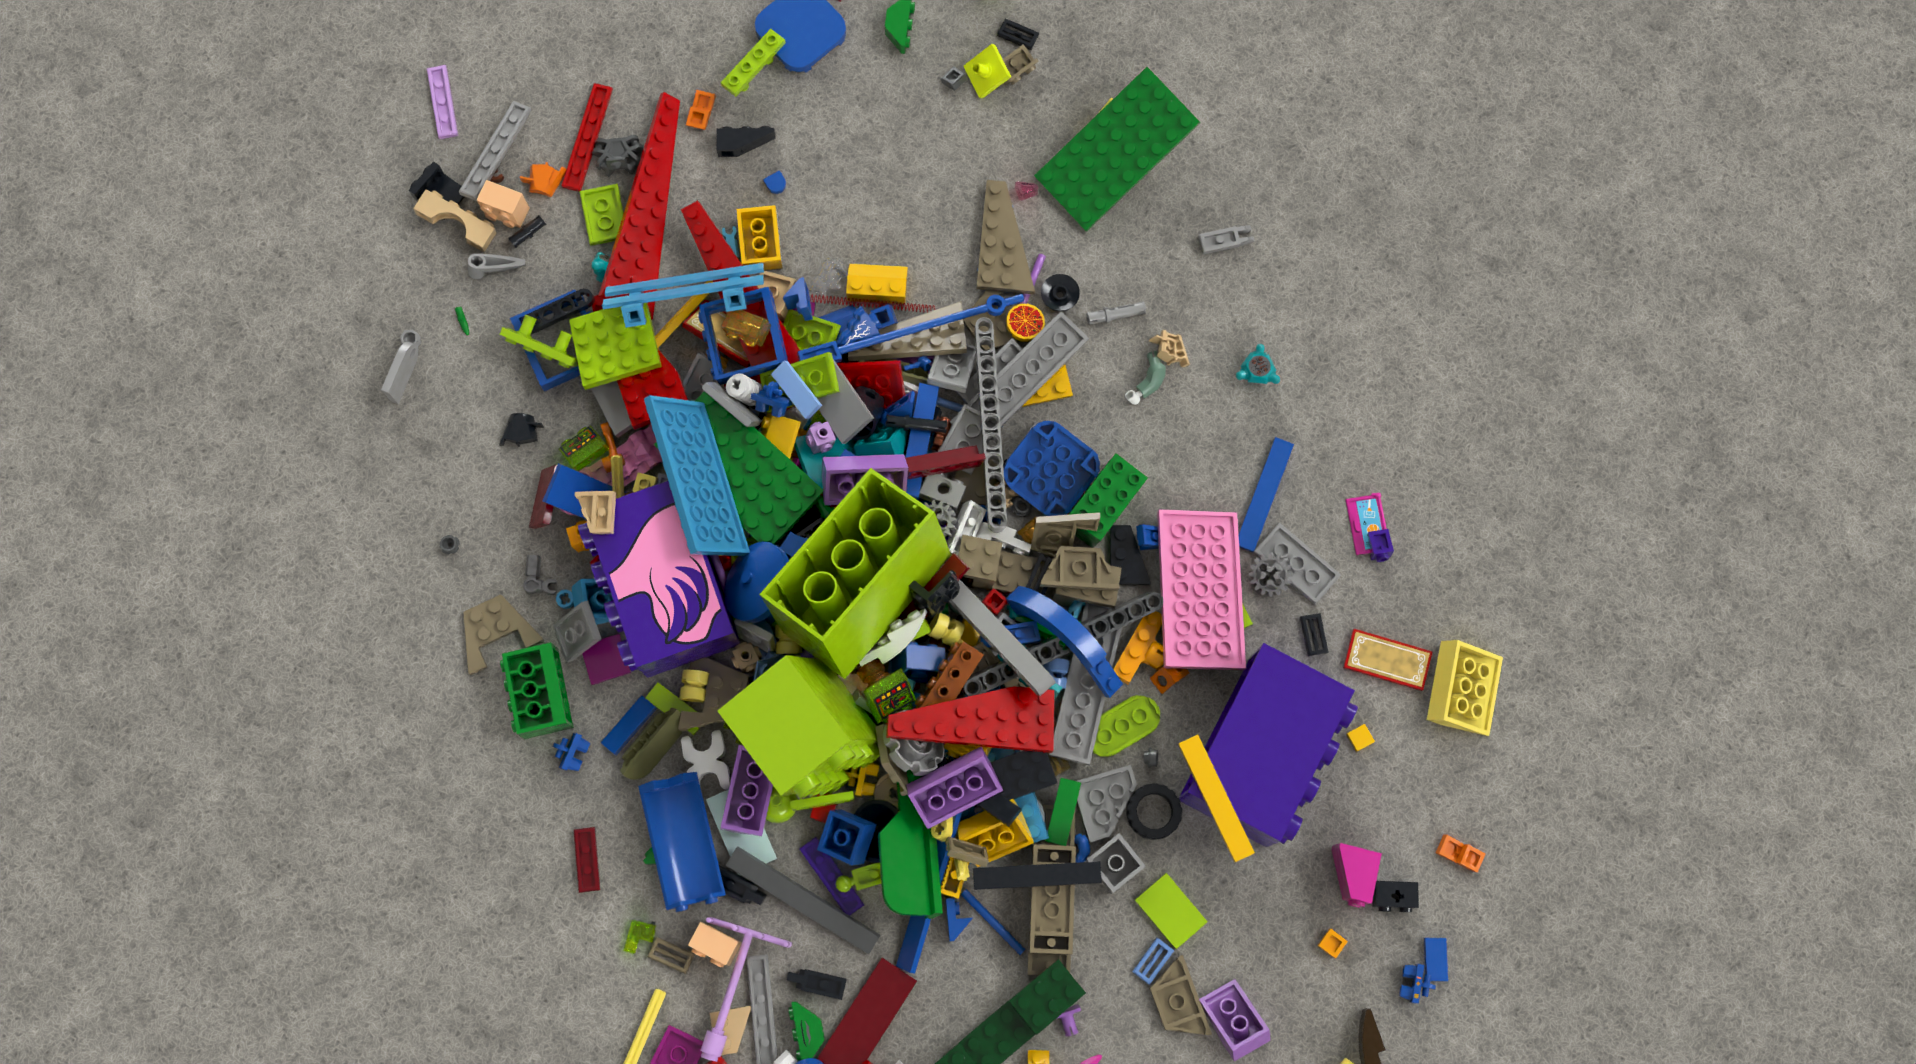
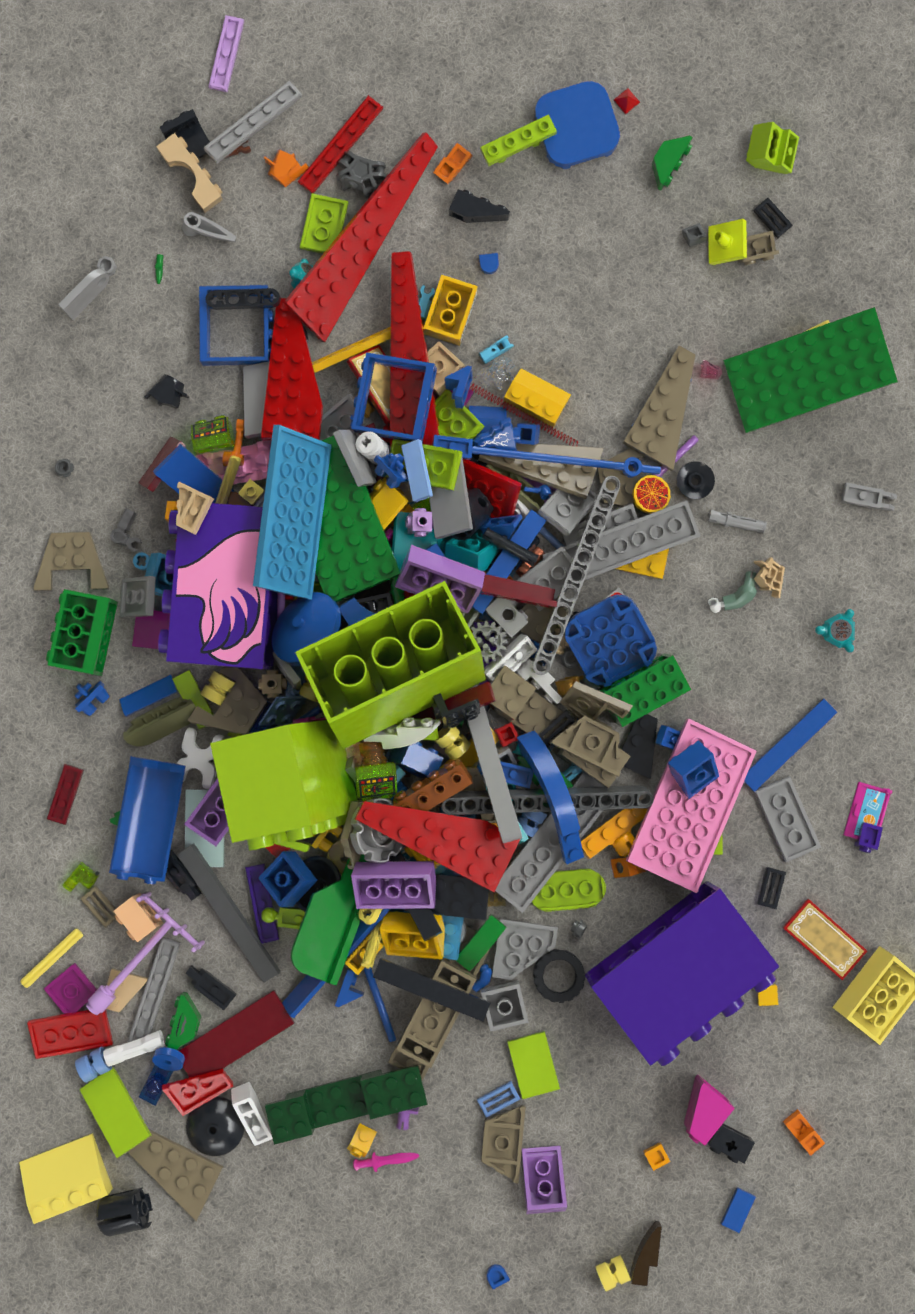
camera: 30 degrees right, 10 degrees up
(503, 204) = (237, 176): light nougat brick -> none
(527, 231) = (249, 210): black pin -> none
(530, 344) = (206, 320): lime plate -> none
(609, 349) = (279, 352): lime plate -> none
(732, 290) = (396, 363): dark azure fence -> none
(746, 327) = (397, 392): clear yellow brick -> none
(816, 258) = (493, 351): none -> medium azure bar
(967, 851) = (379, 945): dark tan tile -> none
(1186, 552) = (694, 768): none -> blue slope
(1216, 798) = (612, 1004): yellow tile -> none
(1271, 585) = (764, 809): light grey gear -> none
(1415, 973) = (705, 1229): blue hips -> none

